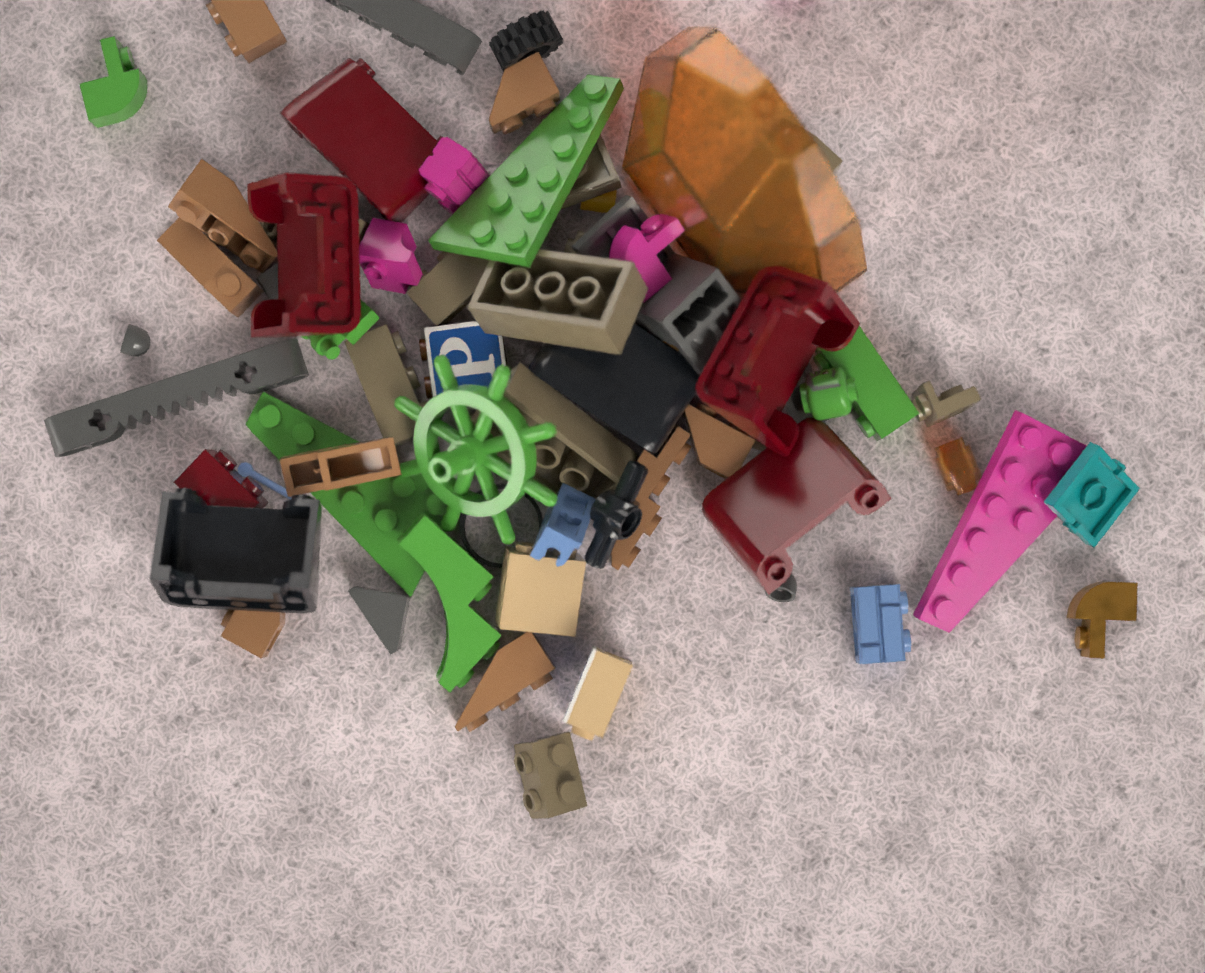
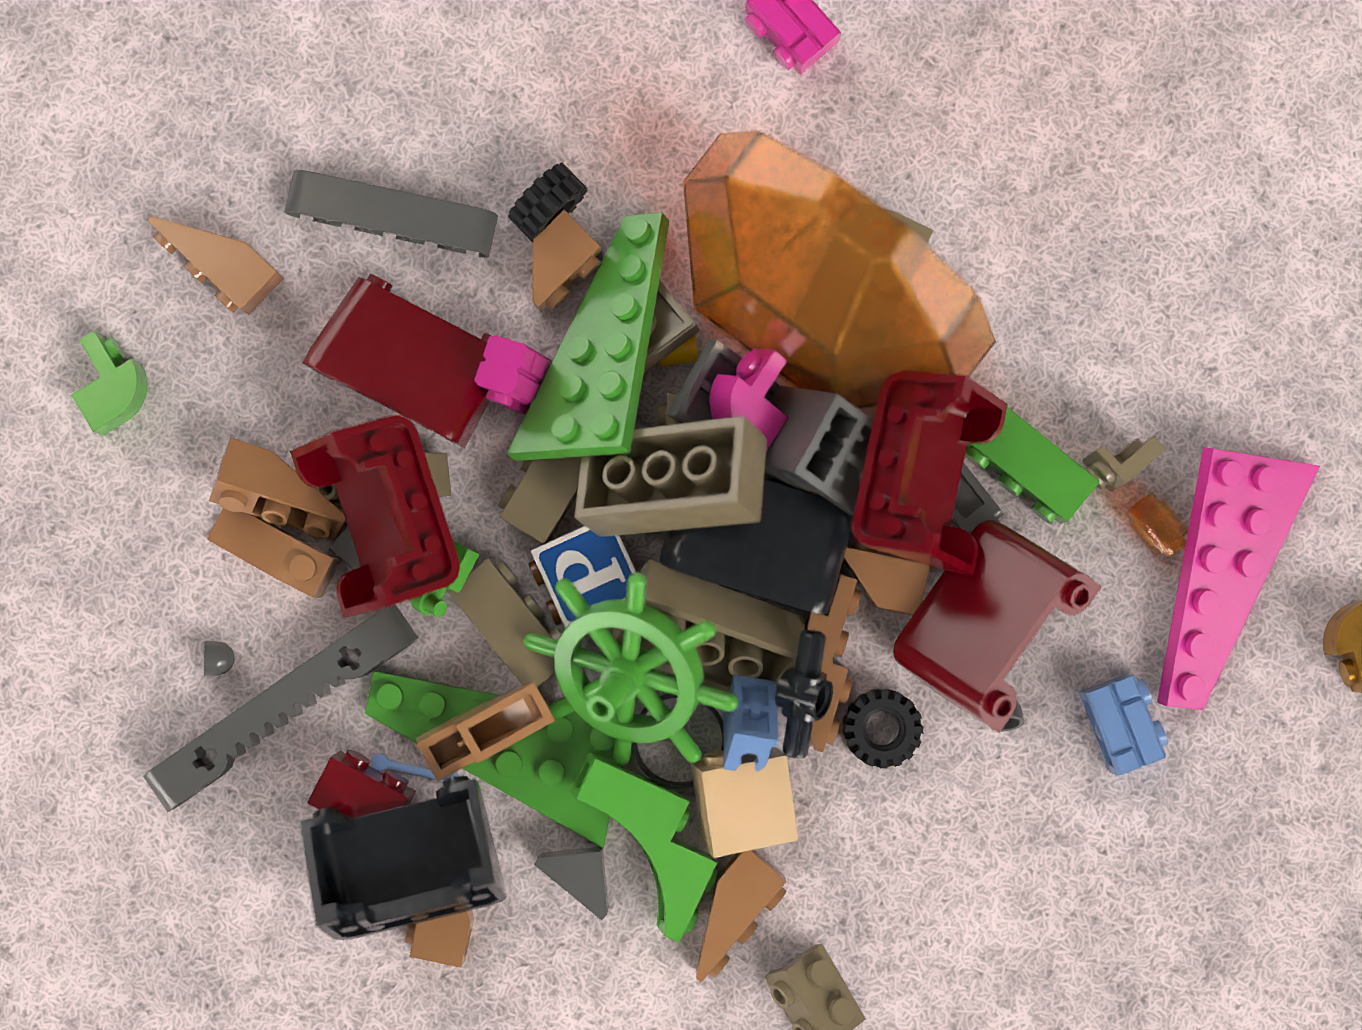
camera: 15 degrees left, 0 degrees up
(389, 256) = (468, 482): dark pink brick -> none
(597, 693) = (841, 895): tan piece -> none
(697, 559) = (906, 740): none -> black tyre
(828, 393) = (995, 490): bright green head -> none
(1092, 494) = (1313, 513): teal plate -> none

